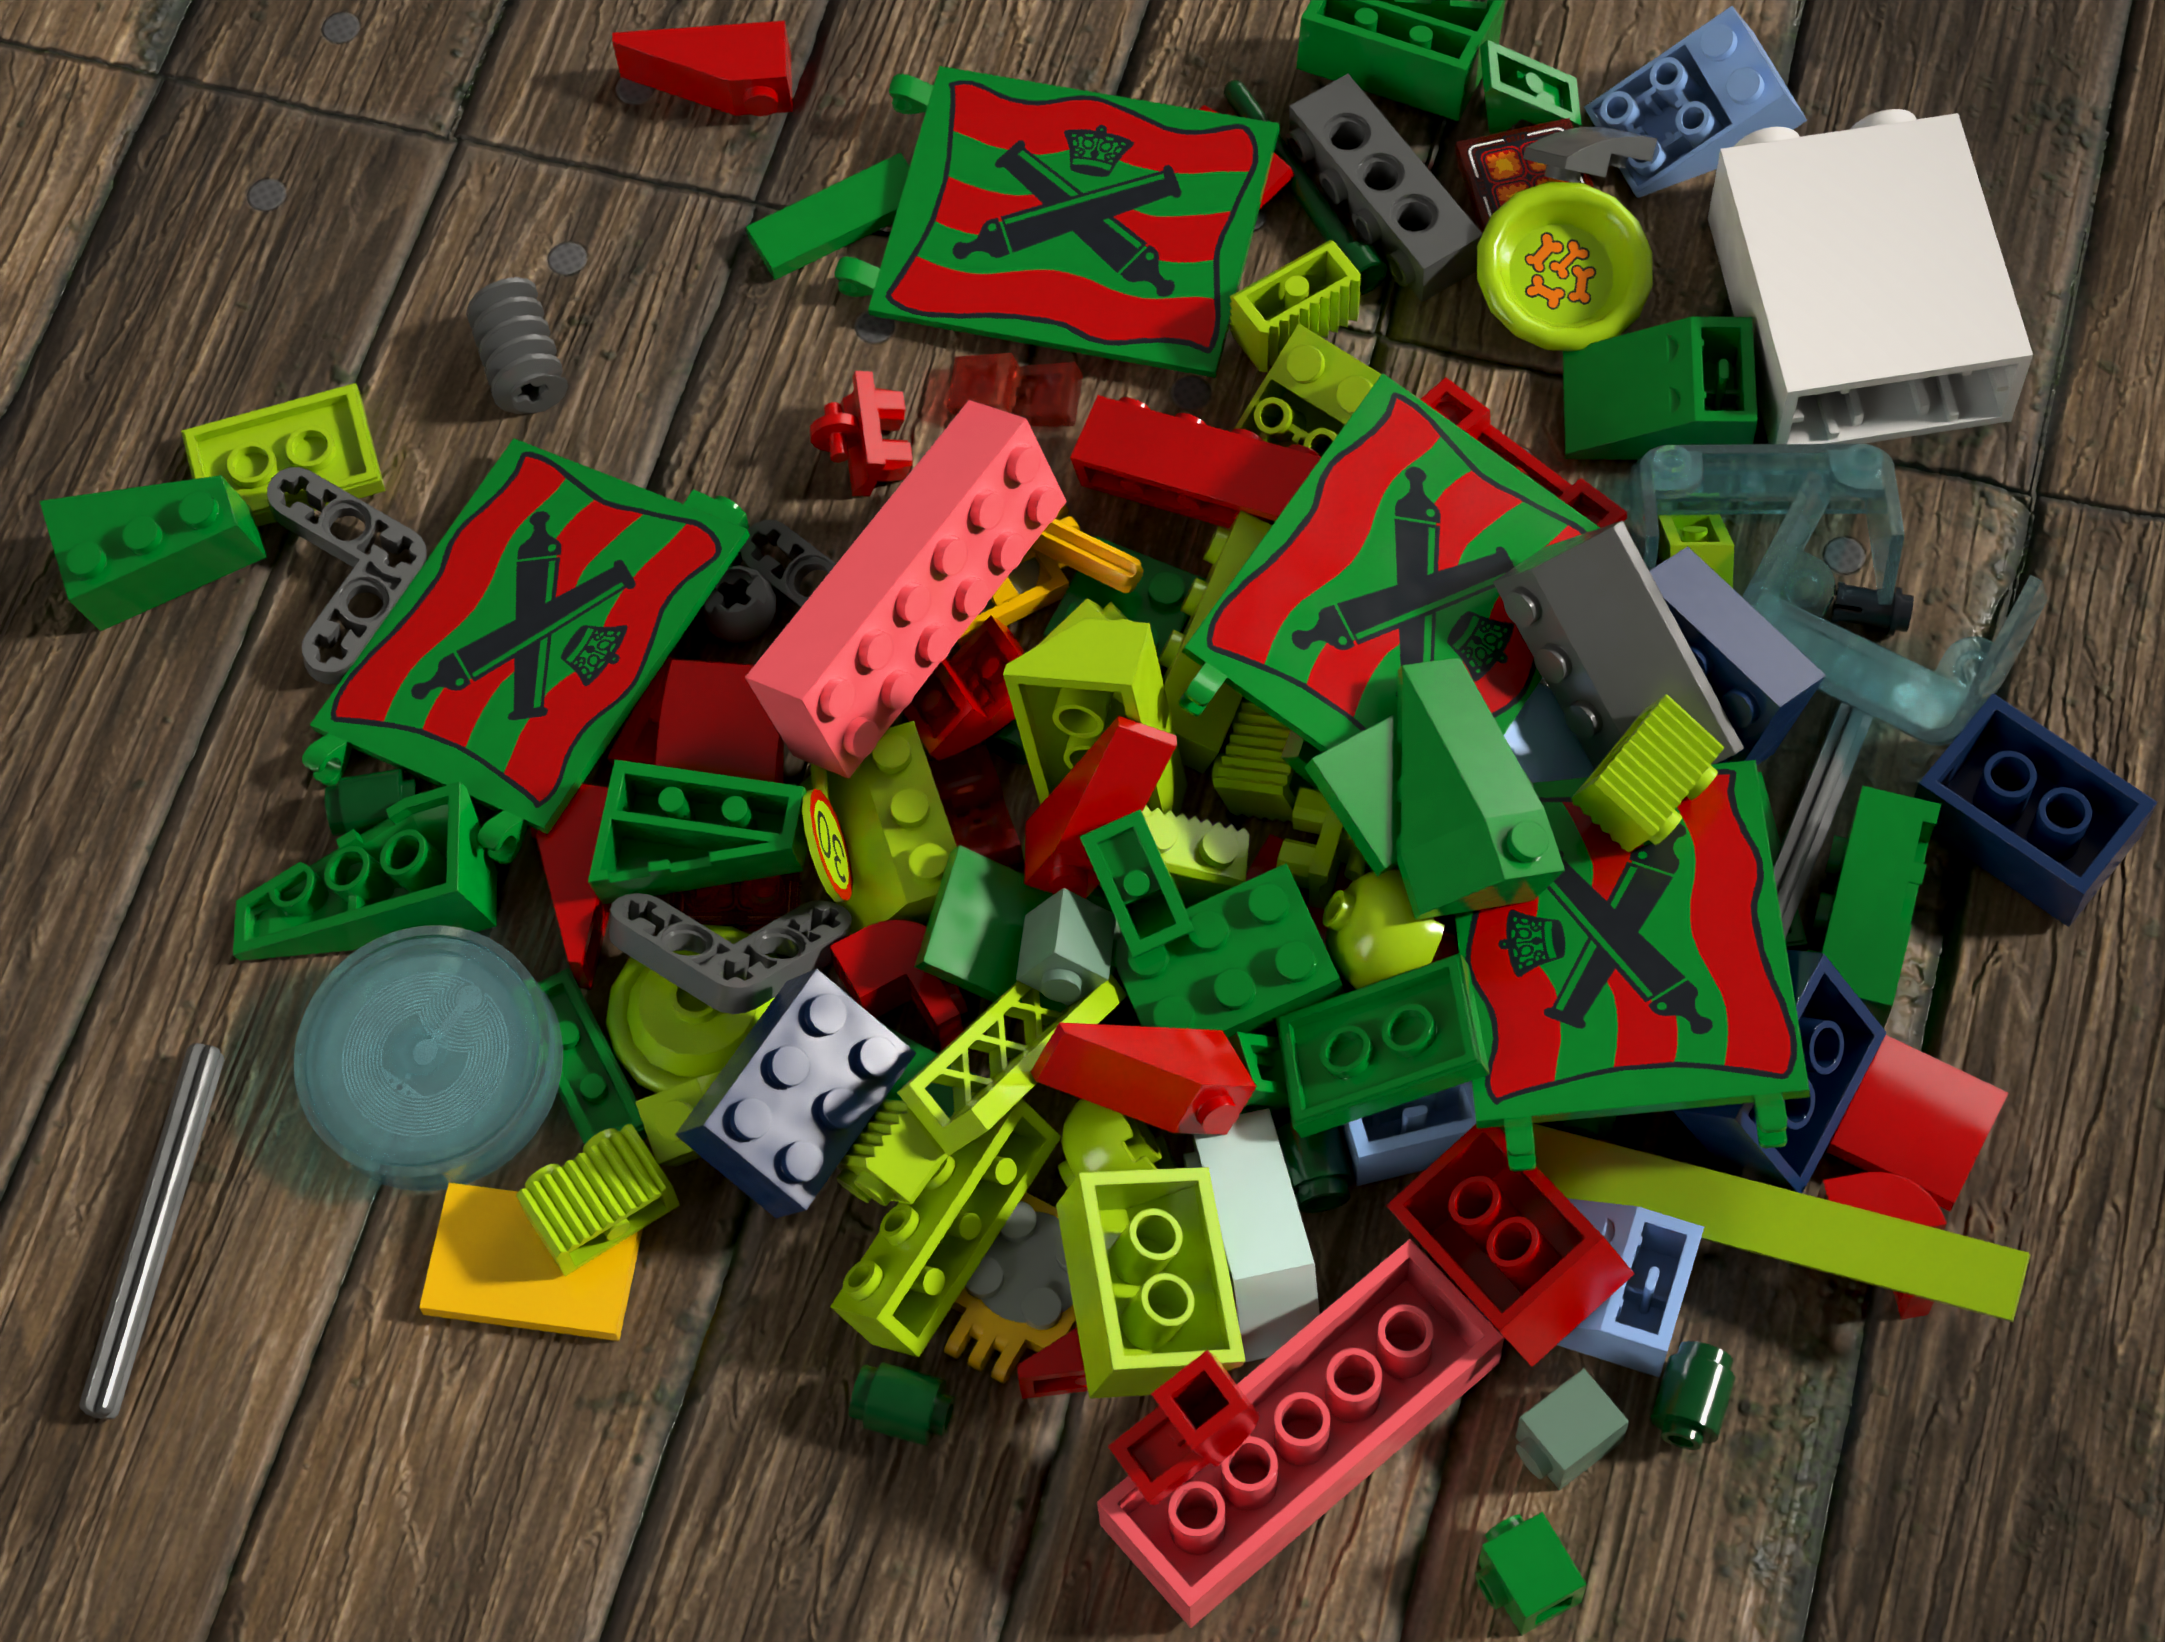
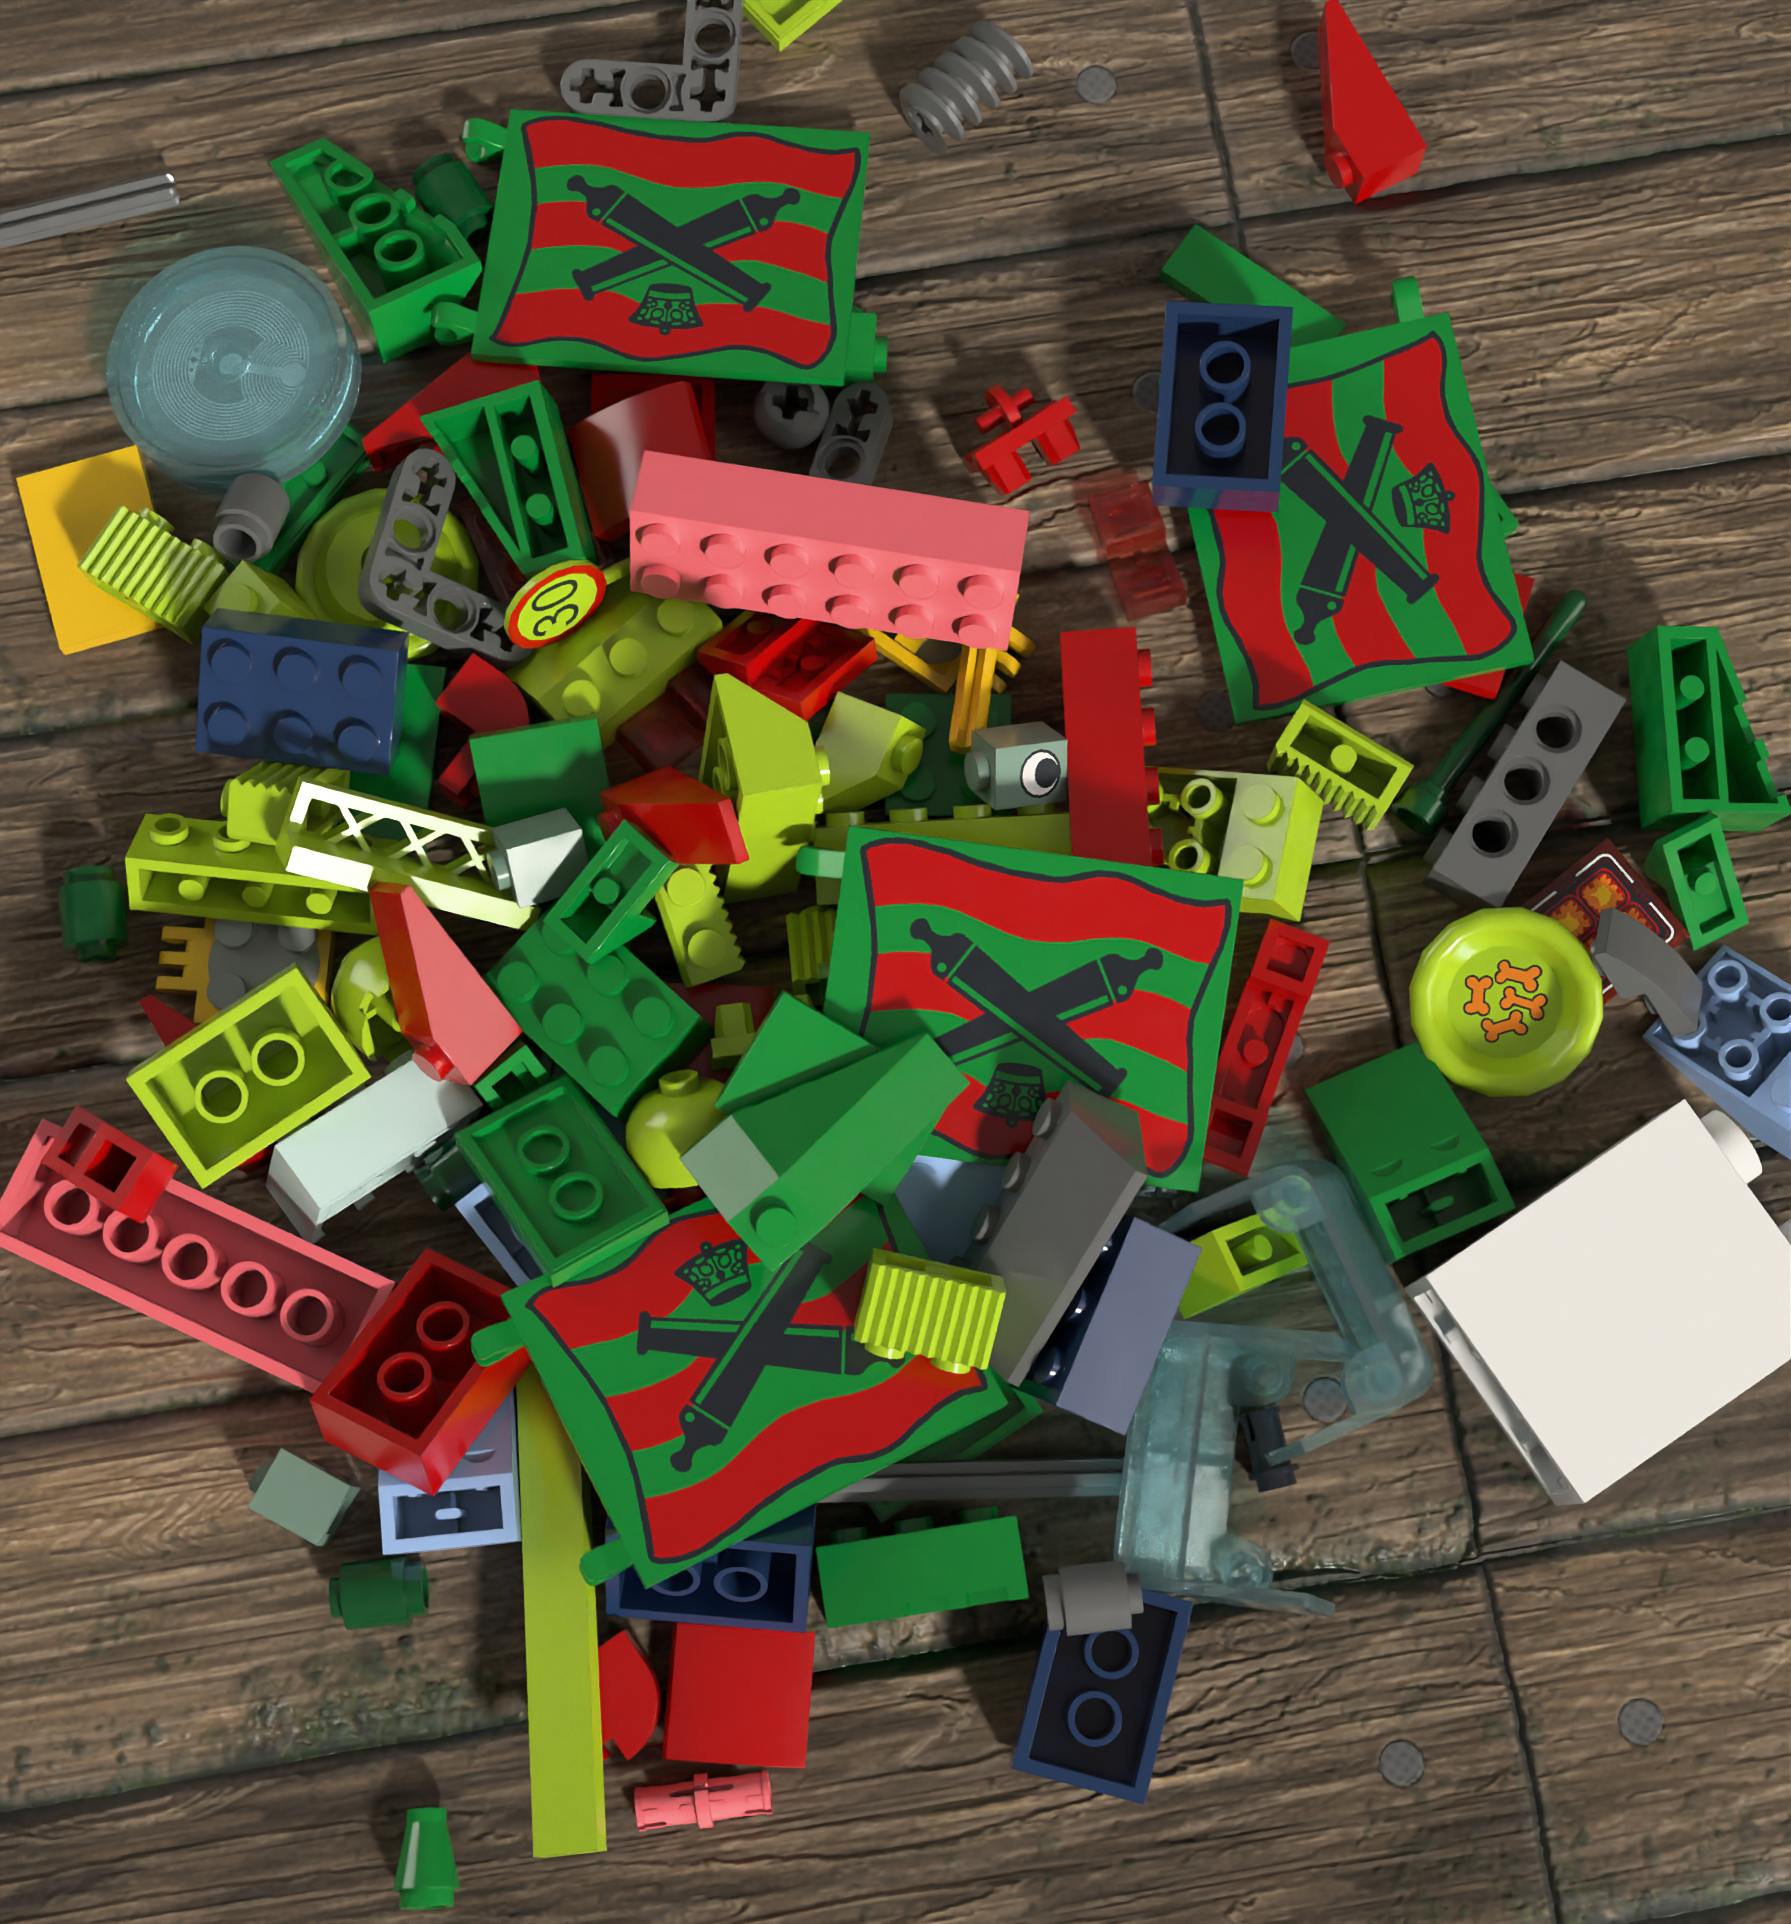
camera: 60 degrees right, 15 degrees up
(592, 1087) = (249, 518): none -> dark grey brick
(936, 251) = (1222, 406): none -> dark blue brick
(1175, 534) = (1017, 765): none -> sand green brick
(1528, 1572) = (158, 1512): green brick -> none
(1960, 758) = (1092, 1598): none -> dark grey brick
(1970, 1458) = (426, 1862): none -> green cone
(2005, 1187) = (703, 1800): none -> coral pin

